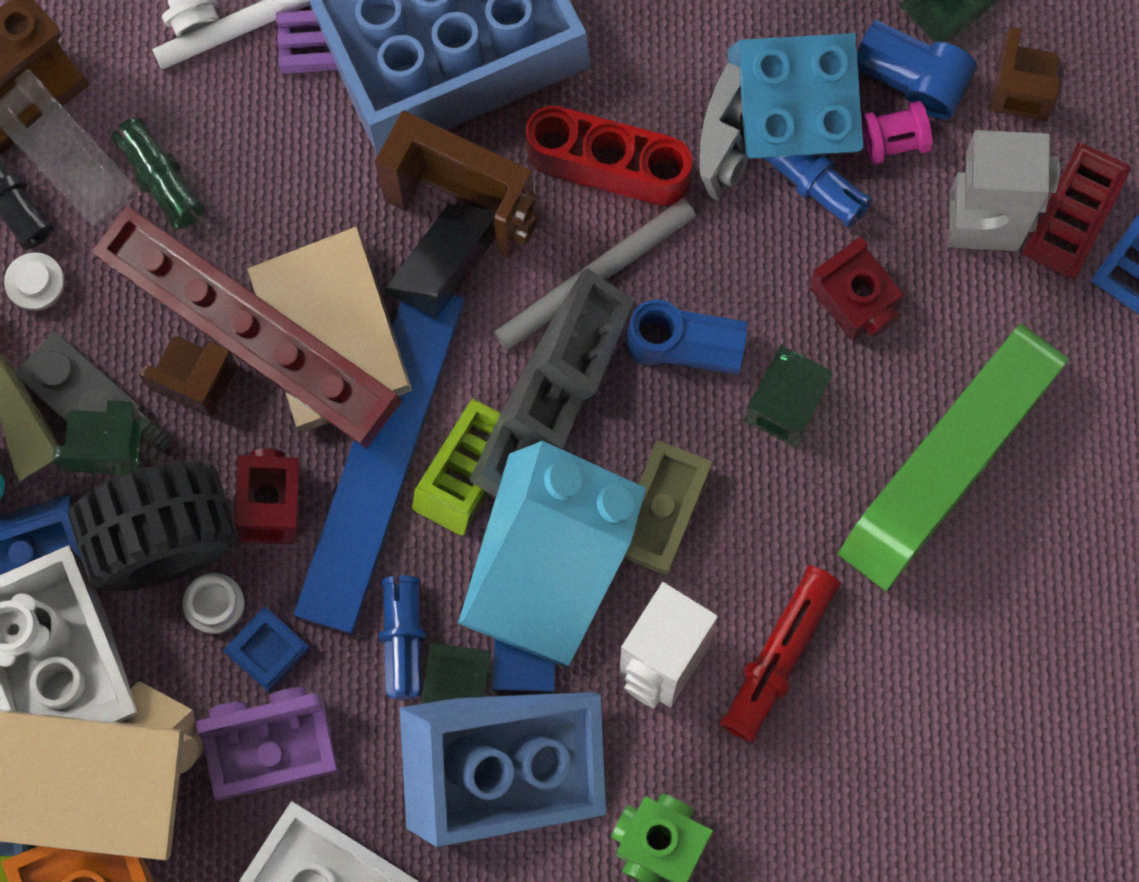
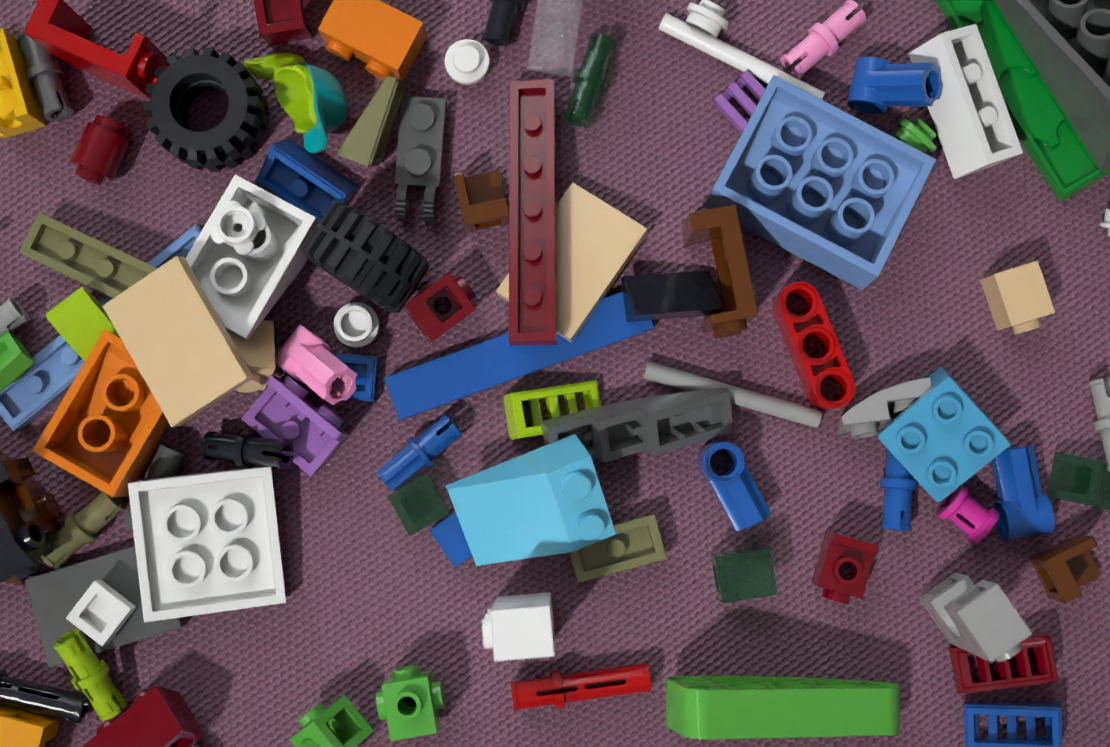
camera: 55 degrees right, 10 degrees up
(102, 440) = (397, 183): clear green panel -> none
(220, 672) = (311, 362): none -> bright pink piece
(253, 815) = (247, 449): none -> black pin
(501, 764) = (384, 572): medium blue slope -> none

